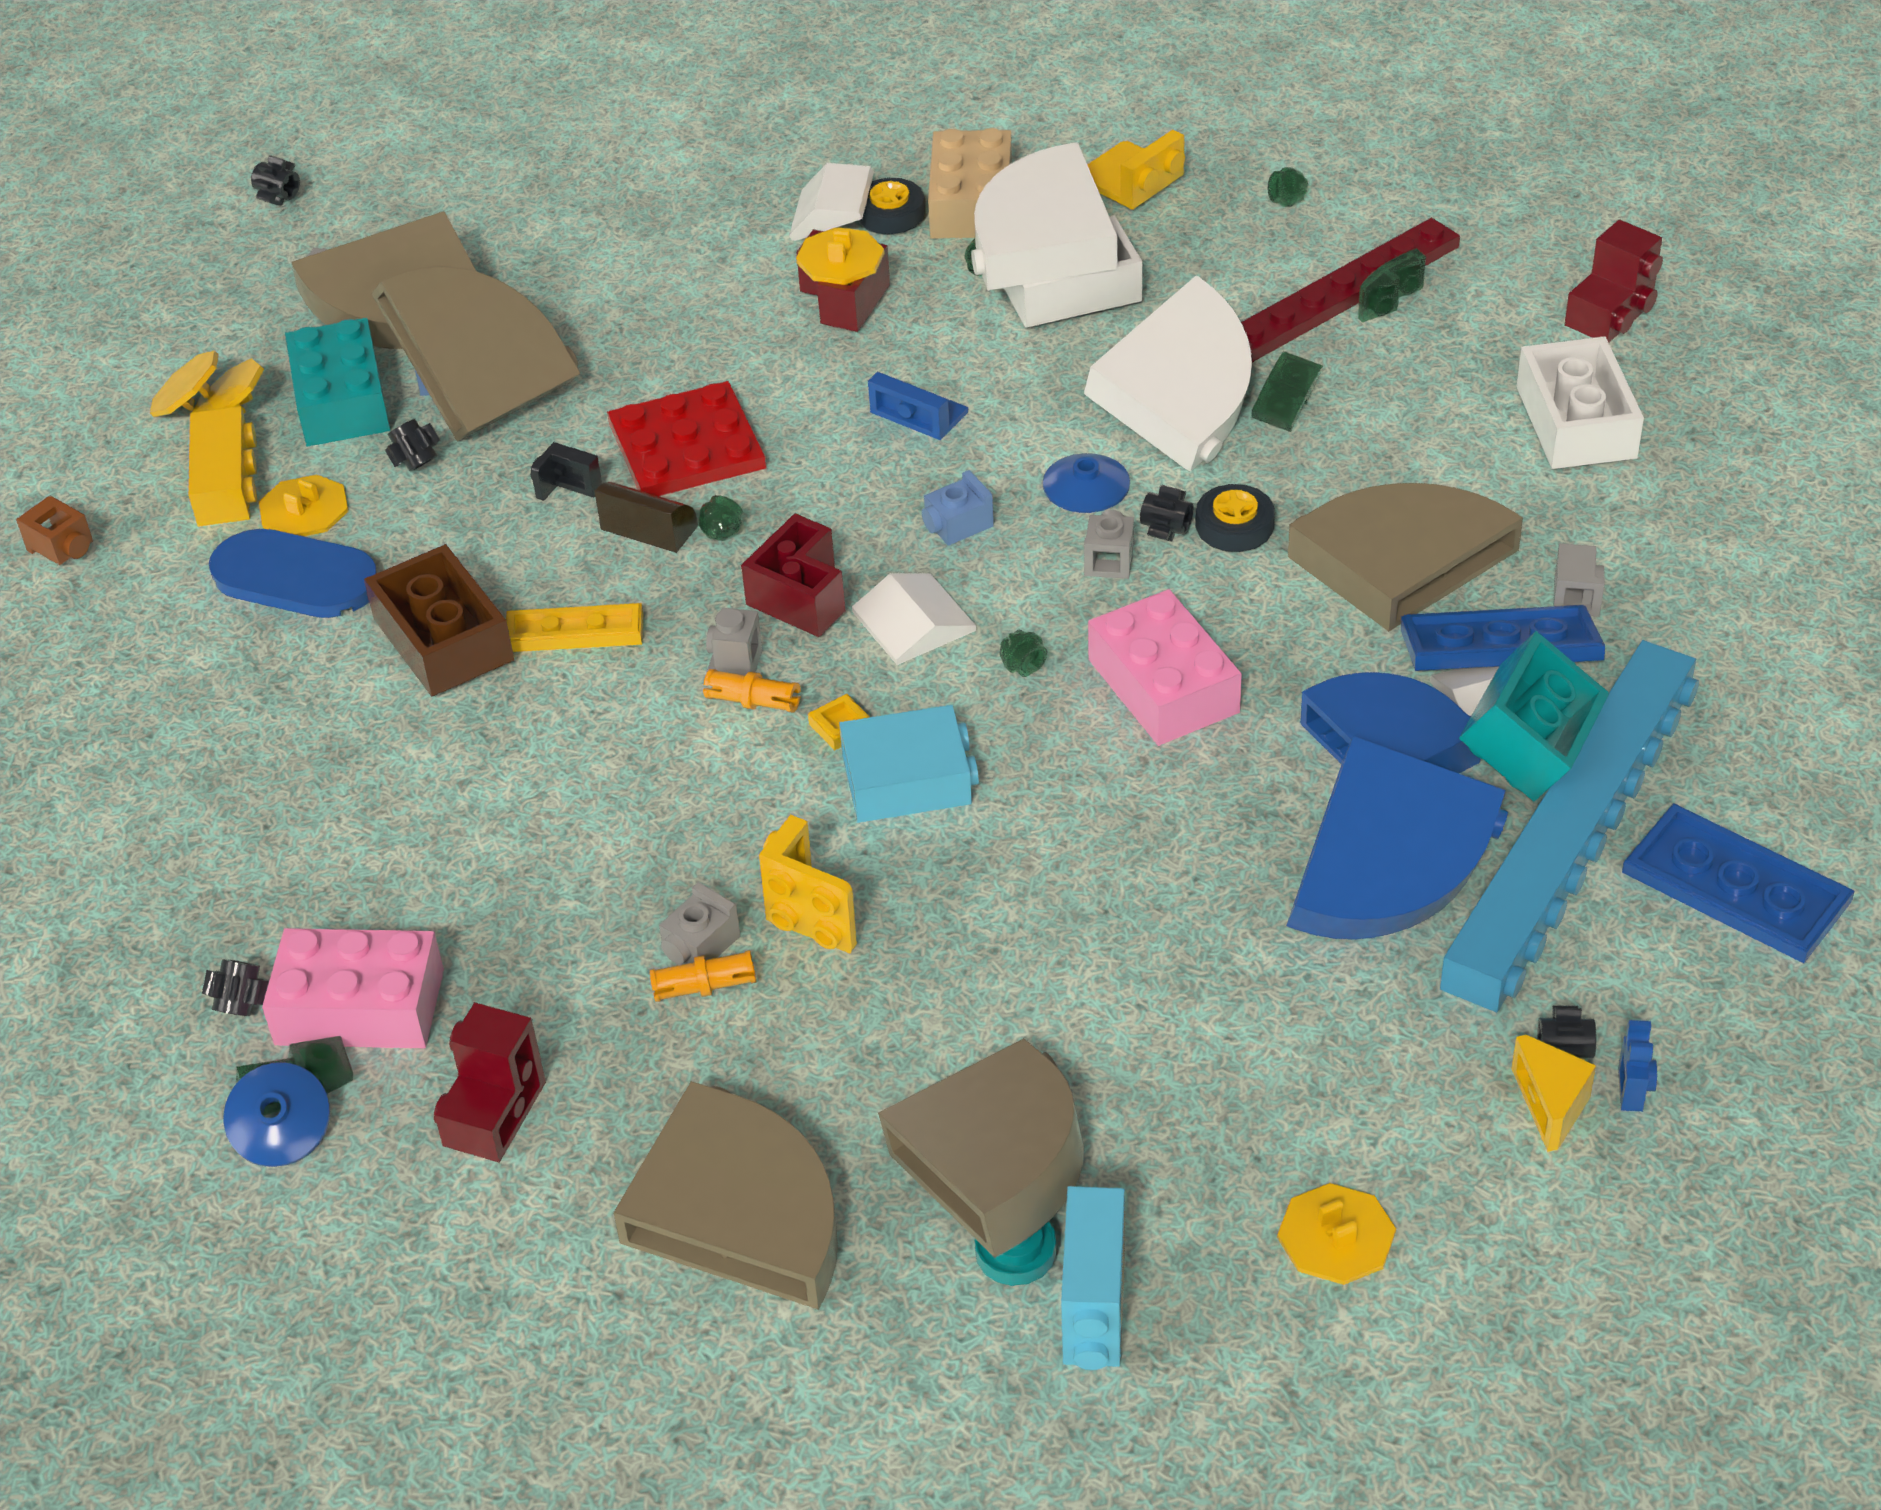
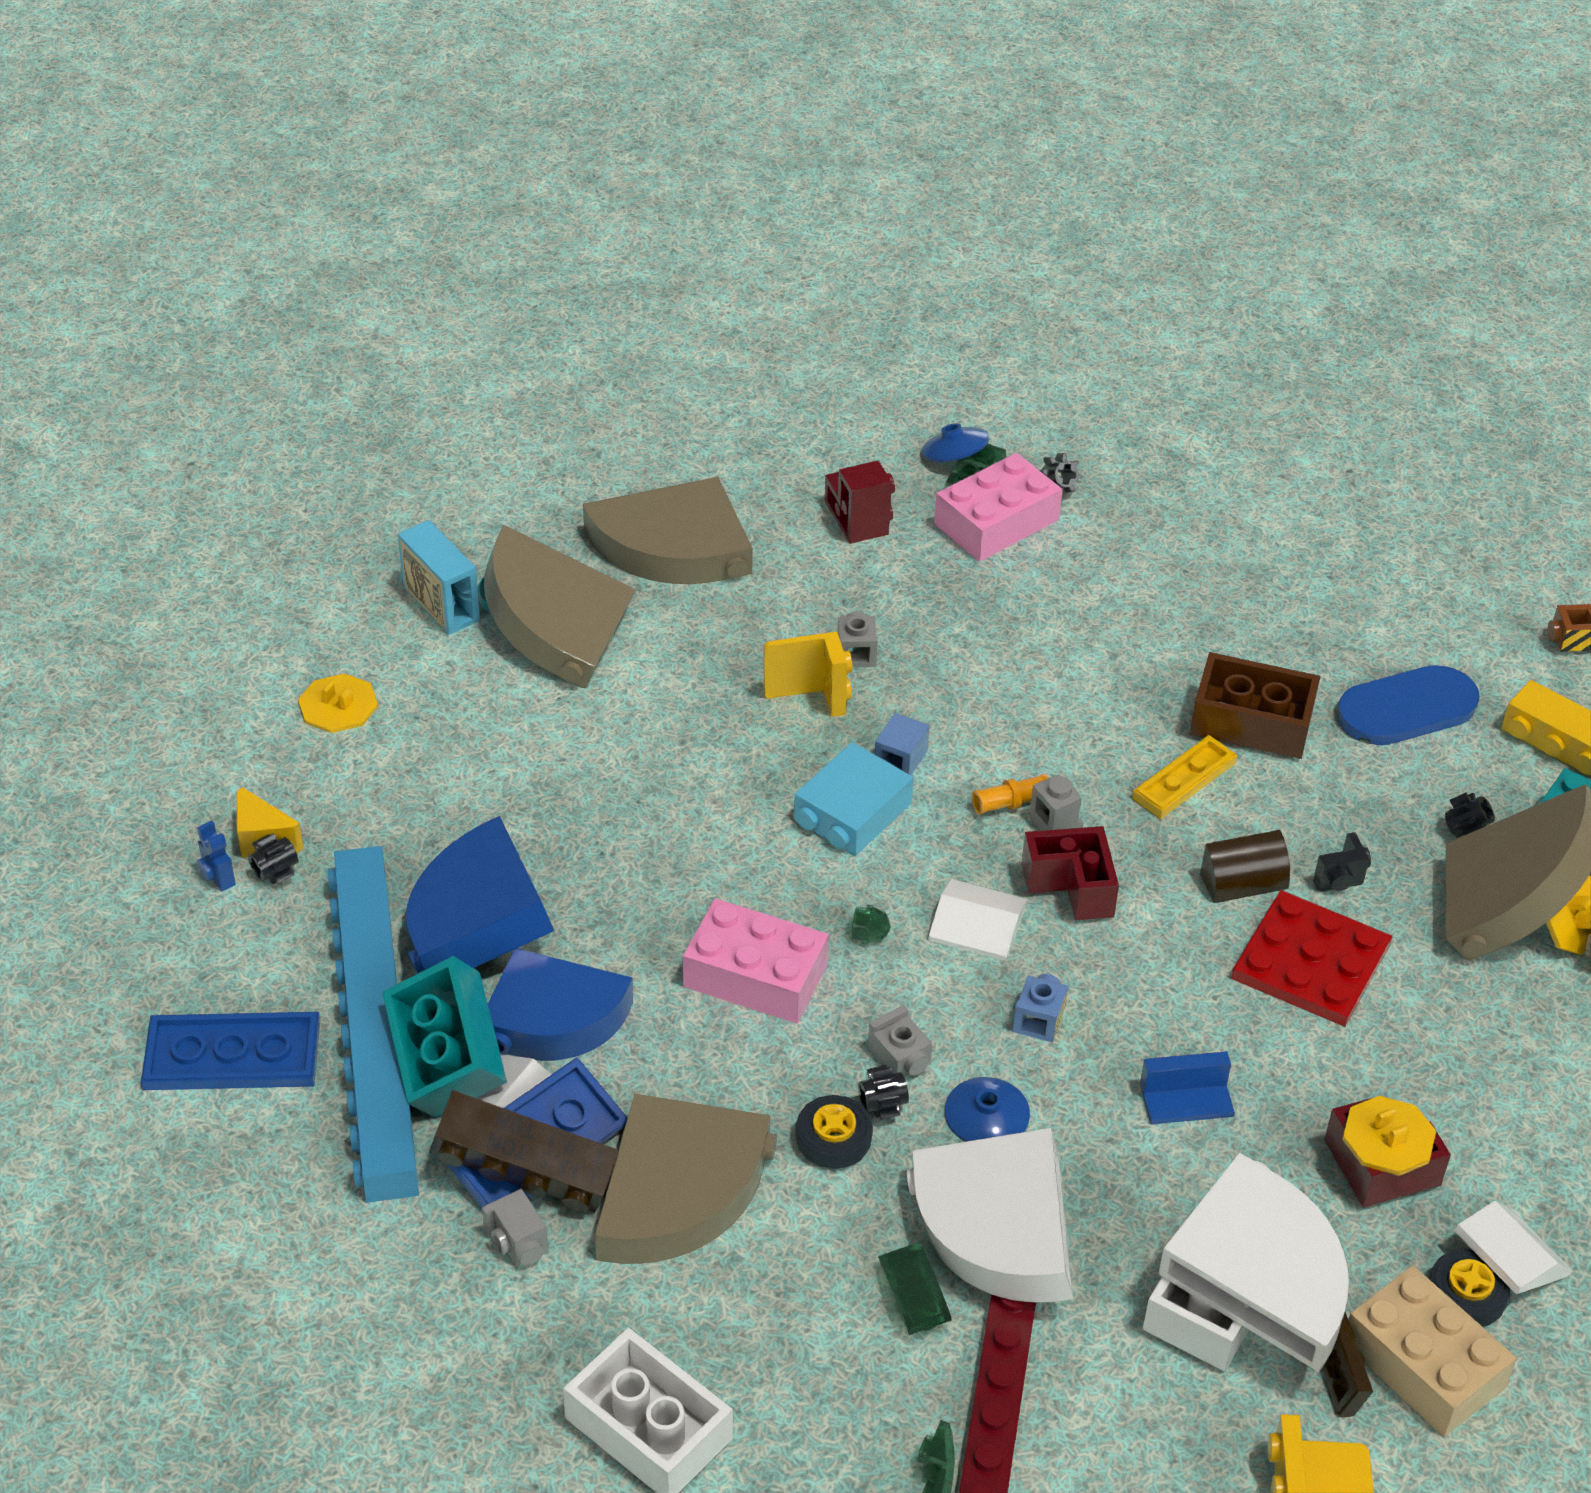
camera: 135 degrees right, 0 degrees up
(303, 505) = (1482, 755): yellow piece -> none
(702, 976) = (826, 619): light orange pin -> none
(720, 518) = (1194, 899): clear green plate -> none
(796, 786) = (903, 742): none -> medium blue brick
(827, 717) = (935, 816): yellow tile -> none
(1535, 599) = (523, 1152): none -> dark brown brick

